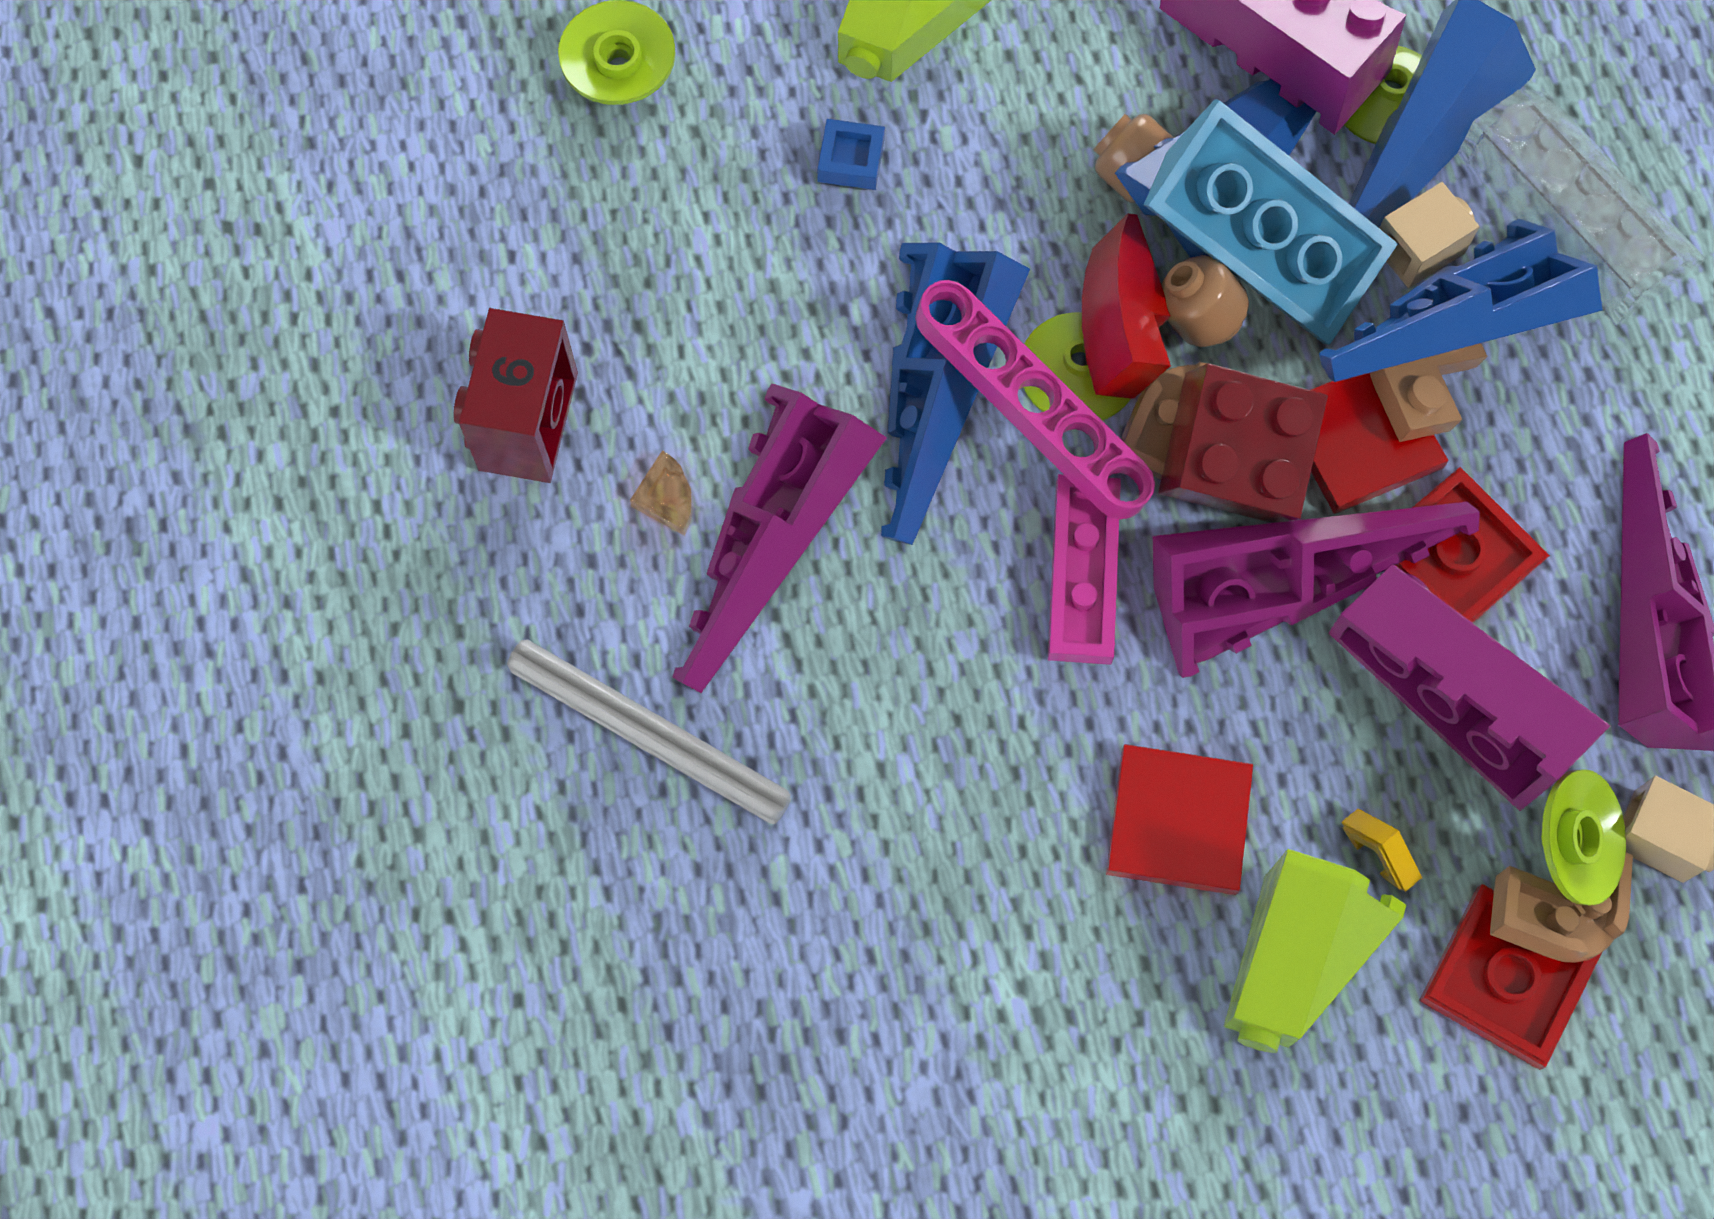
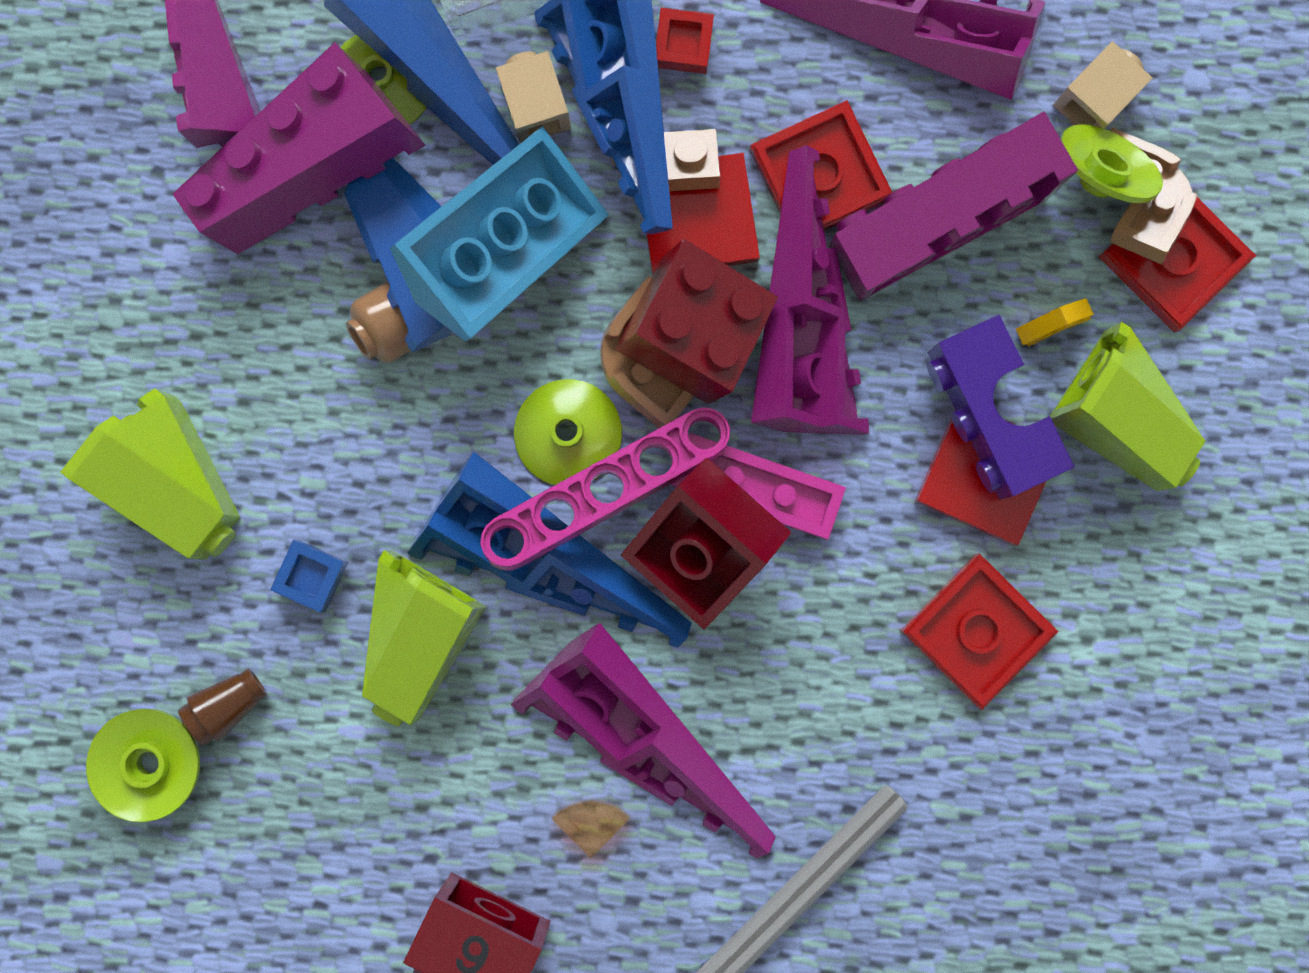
camera: 75 degrees left, 15 degrees up
(694, 108) = (221, 707): none -> reddish brown cone
(816, 264) = (413, 637): none -> lime slope
(995, 855) = (979, 631): none -> red tile
(1006, 511) = (705, 543): none -> dark red brick
(1123, 313) = (537, 383): red slope -> none
(1204, 301) = (548, 312): medium nougat head -> none
(1297, 753) = (1009, 454): none -> dark purple arch
(1547, 368) = (684, 40): none -> red plate

